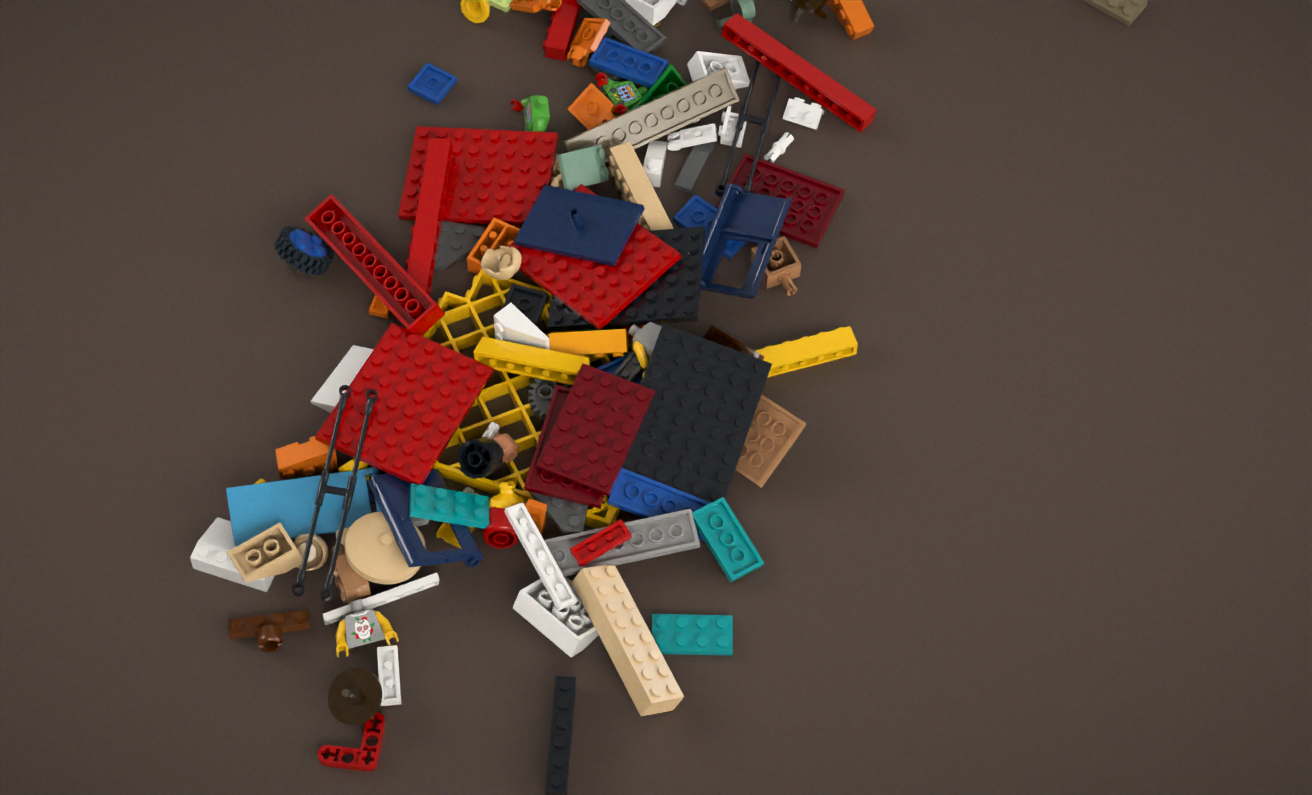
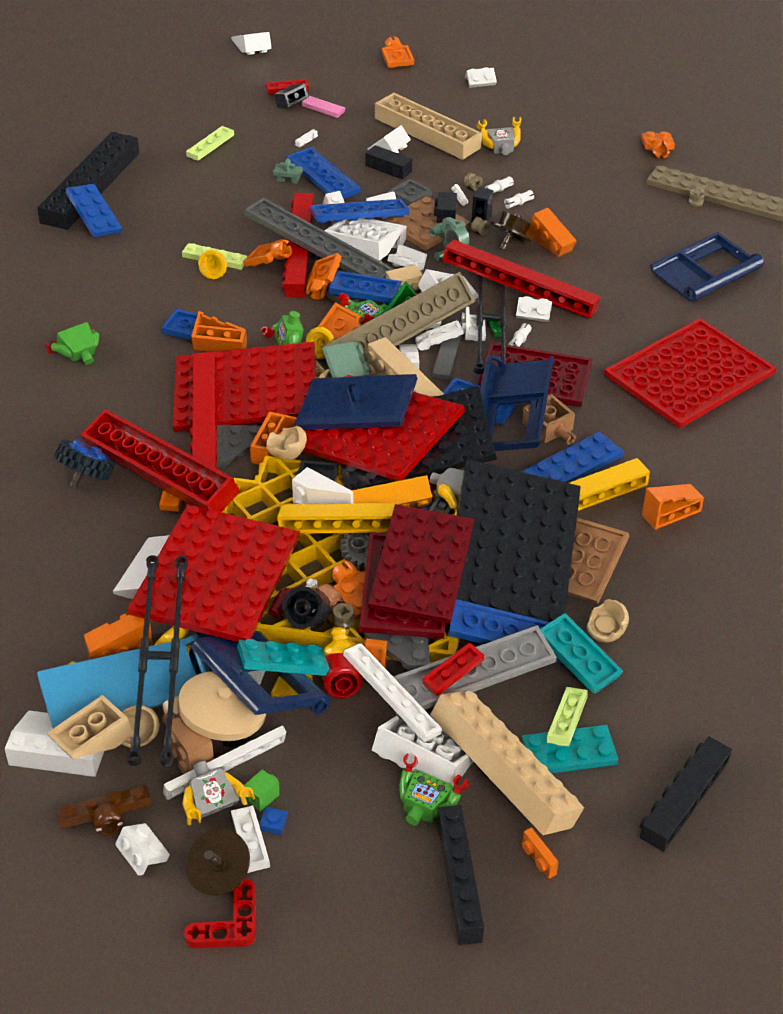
camera: 10 degrees left, 15 degrees down
(295, 668) = (141, 847): none -> white bracket
(318, 96) = (76, 343): none -> bright green torso
(408, 630) = (265, 789): none -> bright green brick
(413, 661) = (273, 820): none -> blue plate
(461, 108) = (217, 336): none -> orange wedge
(462, 438) = (276, 607): none -> dark red cone
(516, 473) = (343, 615): none -> dark tan wheel
(527, 437) = (350, 584): none -> orange plate
(550, 659) = (425, 793): none -> bright green torso
(566, 128) = (321, 337): none -> yellow hair
(637, 739) = (540, 853): none -> orange plate
(676, 52) = (410, 274): none -> tan brick
(686, 25) = (407, 257): none -> white bracket
(696, 603) = (567, 716): none -> yellowish green plate
(755, 129) = (495, 327): none -> green axle
(763, 510) = (608, 621): none -> tan piece
(782, 695) = (685, 794): none -> black brick
(785, 318) = (578, 459): none -> blue plate
(868, 384) = (670, 503): none -> orange wedge
(944, 220) = (689, 372): none -> red plate
(987, 91) = (693, 280): none -> dark blue piece

